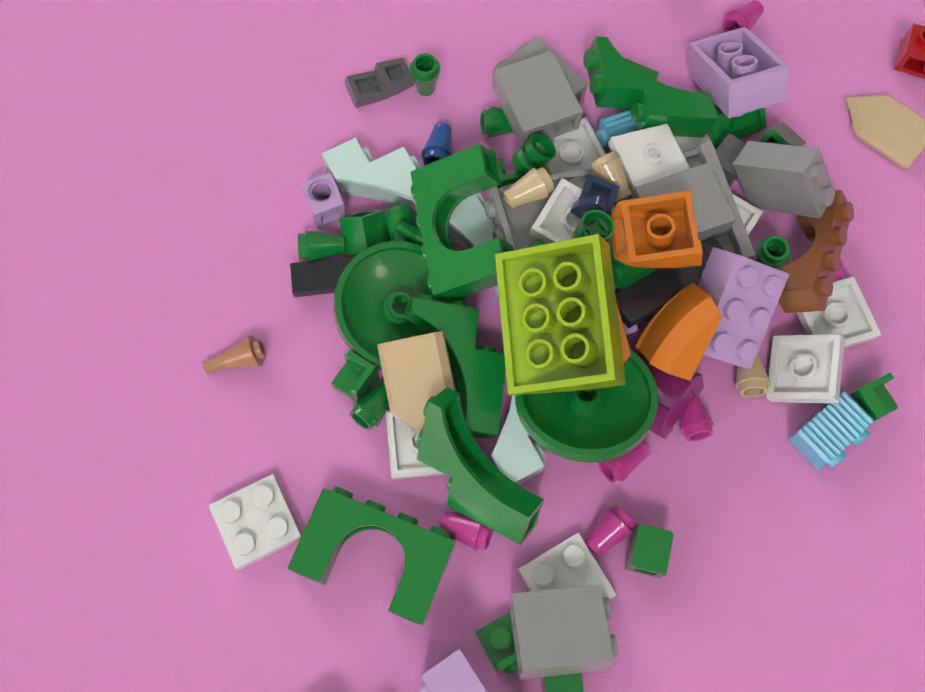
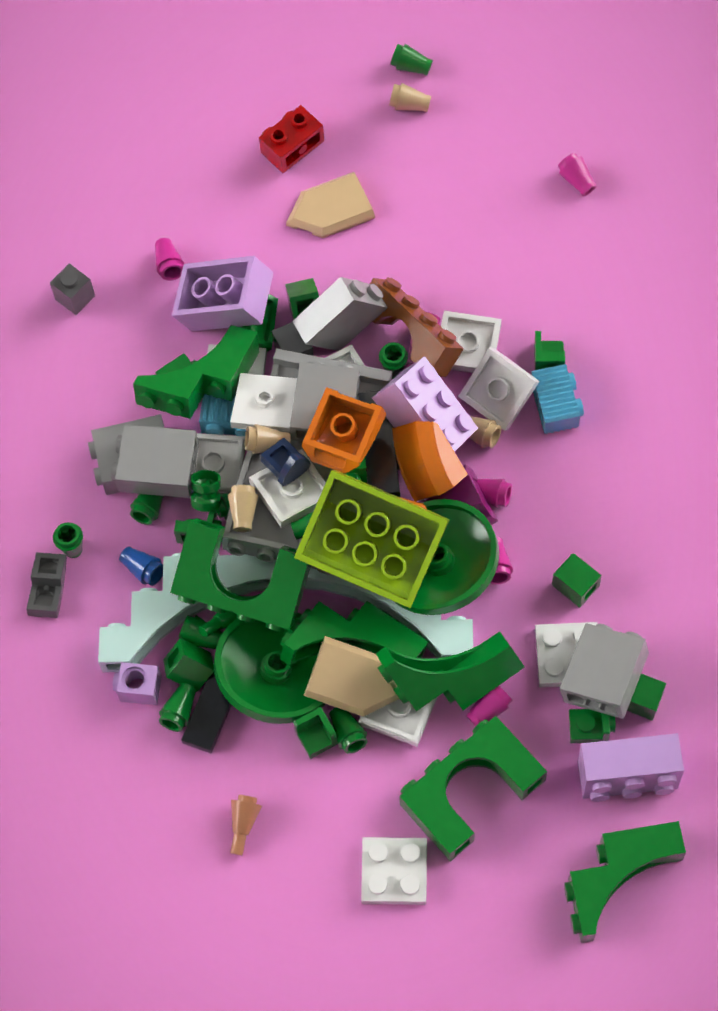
camera: 55 degrees left, 5 degrees down
(594, 223) = (313, 476): green wheel -> none
(611, 529) = (546, 600): dark pink cone -> none

